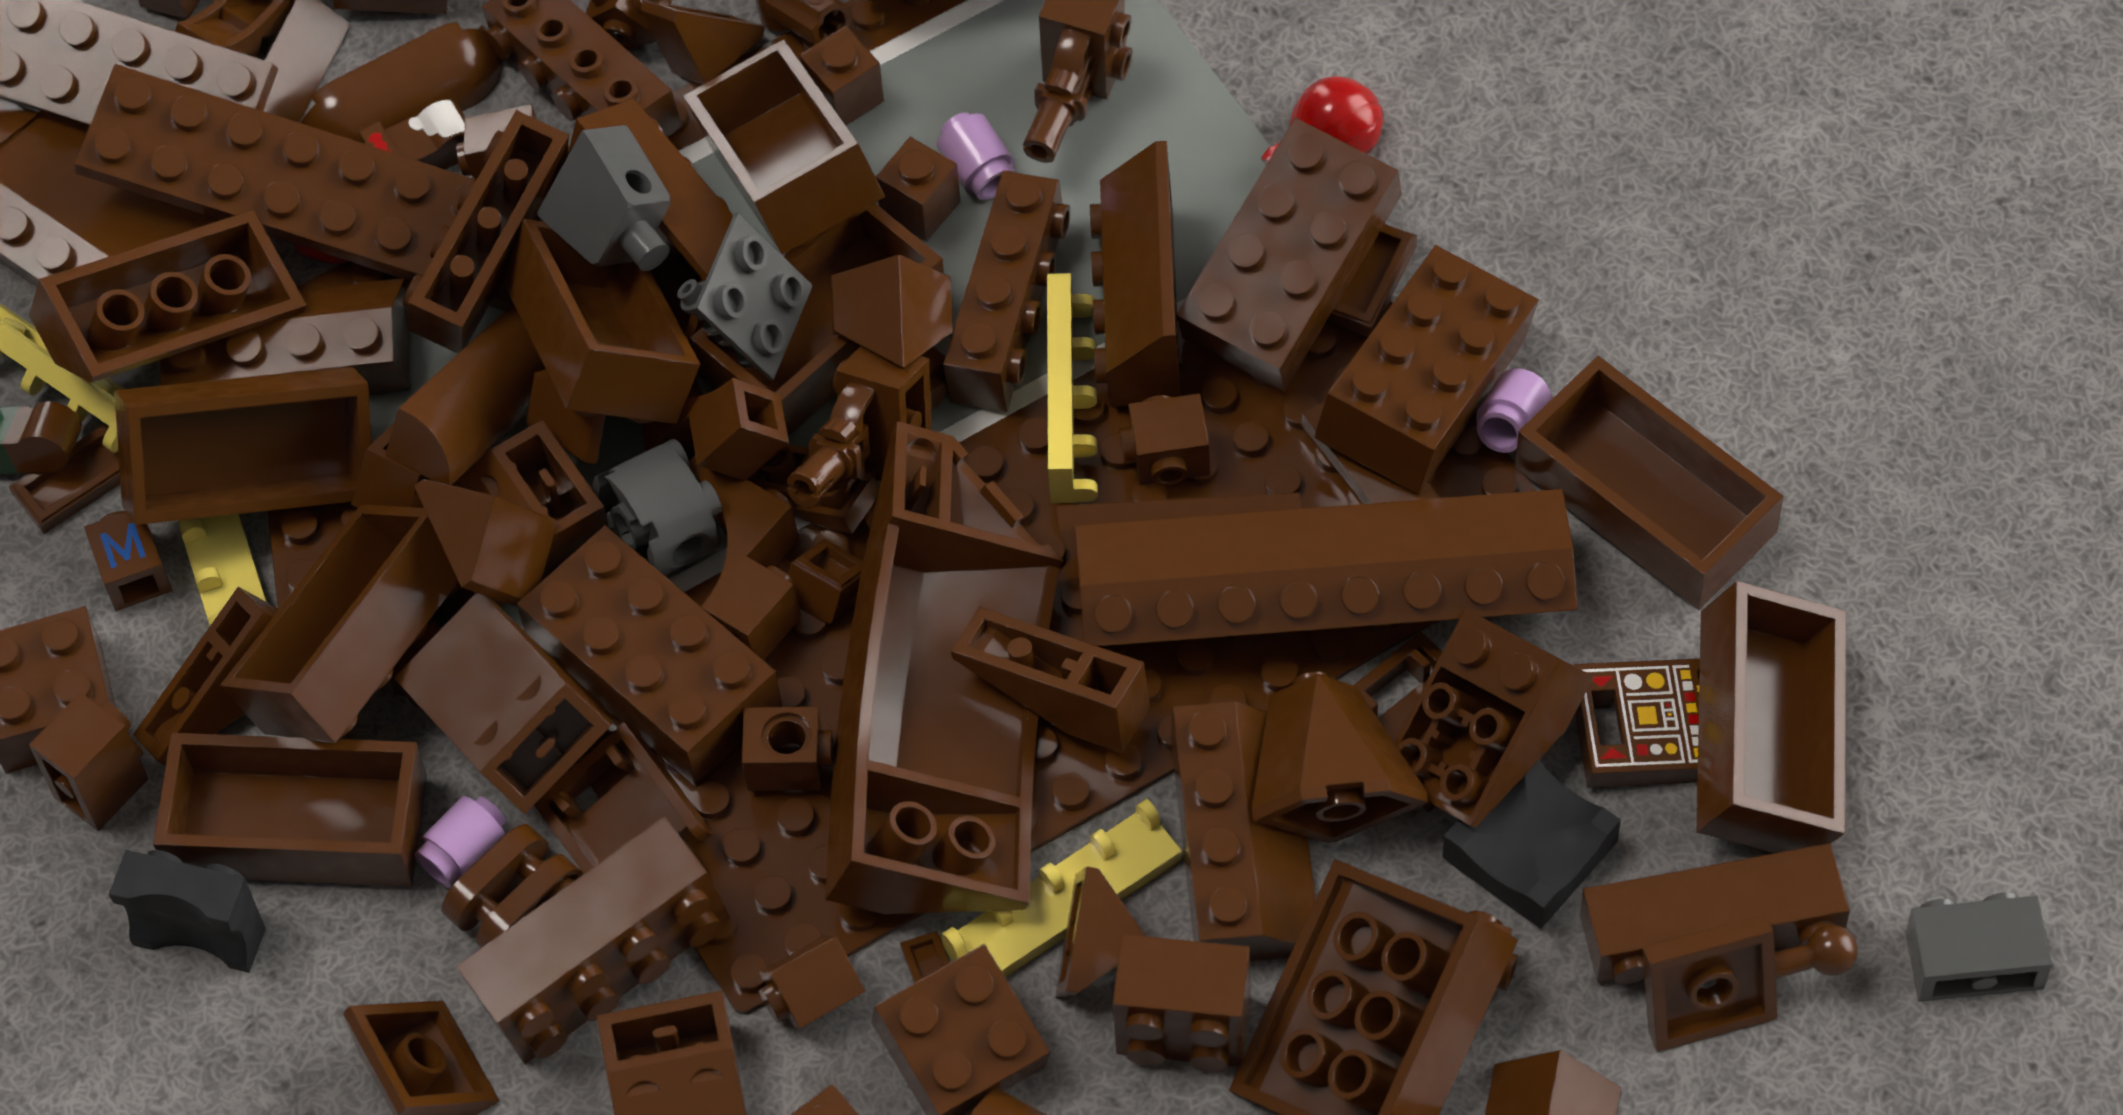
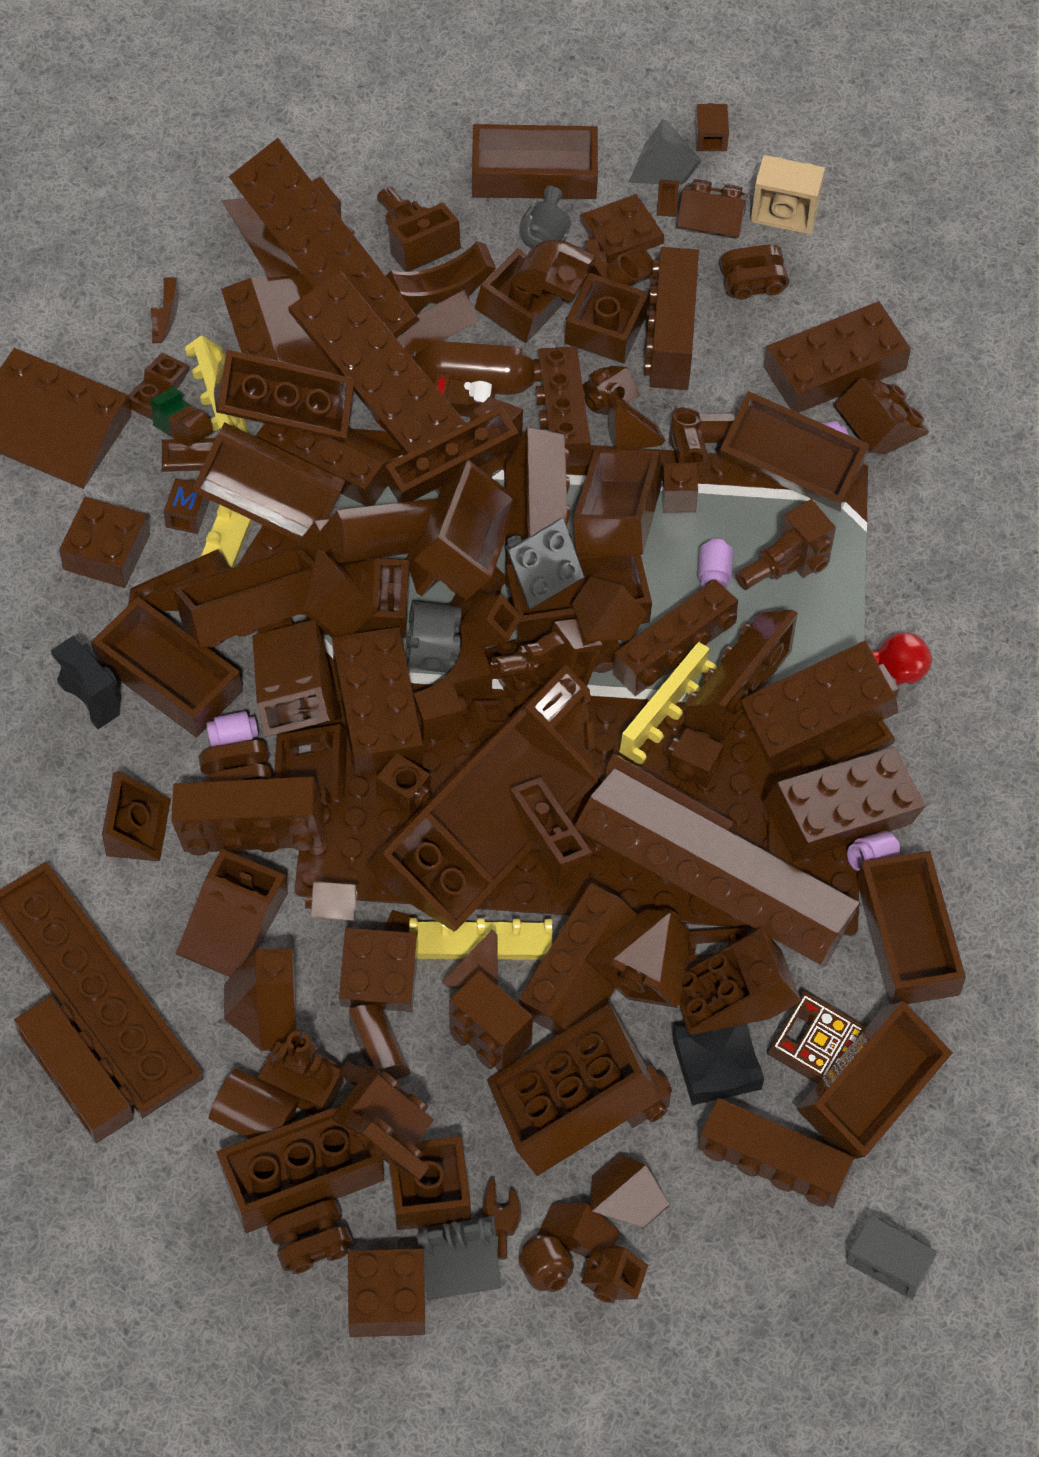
camera: 30 degrees right, 0 degrees up
(90, 759) = (97, 586): reddish brown brick -> none
(609, 201) = (511, 474): dark grey torso -> none
(919, 188) = (673, 563): reddish brown brick -> none
(1746, 975) = (765, 1189): reddish brown plate -> none

